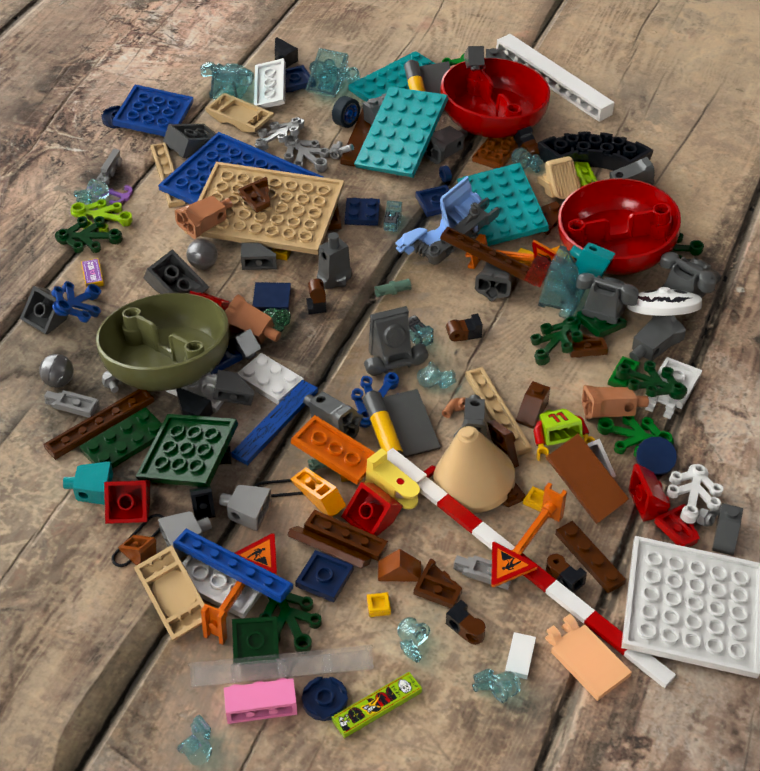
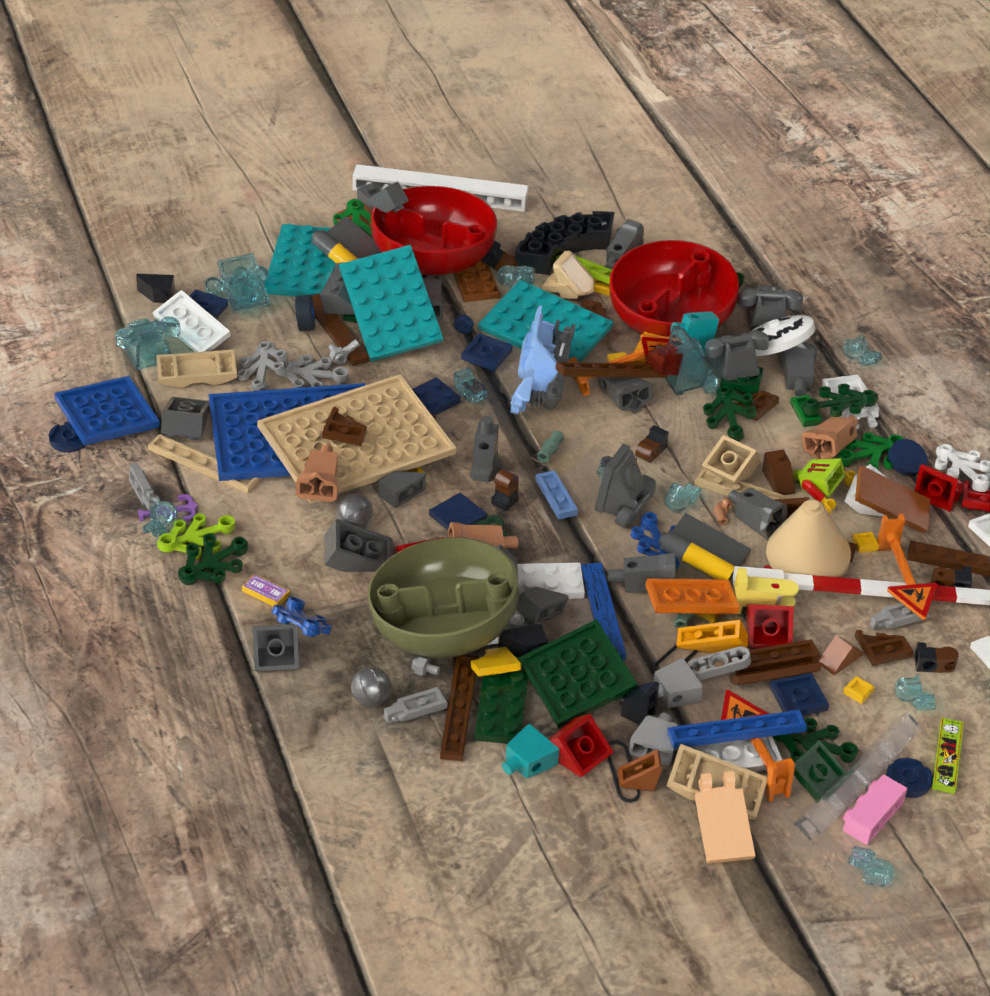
camera: 45 degrees left, 5 degrees down
(141, 623) = (723, 820): none -> light nougat tile
(151, 408) = (495, 662): none -> yellow tile
(310, 520) = (713, 671): none -> light grey beam
(351, 323) = (556, 495): none -> medium blue plate
(503, 374) = (732, 460): none -> tan slope
(727, 351) = (858, 349): none -> clear light blue piece

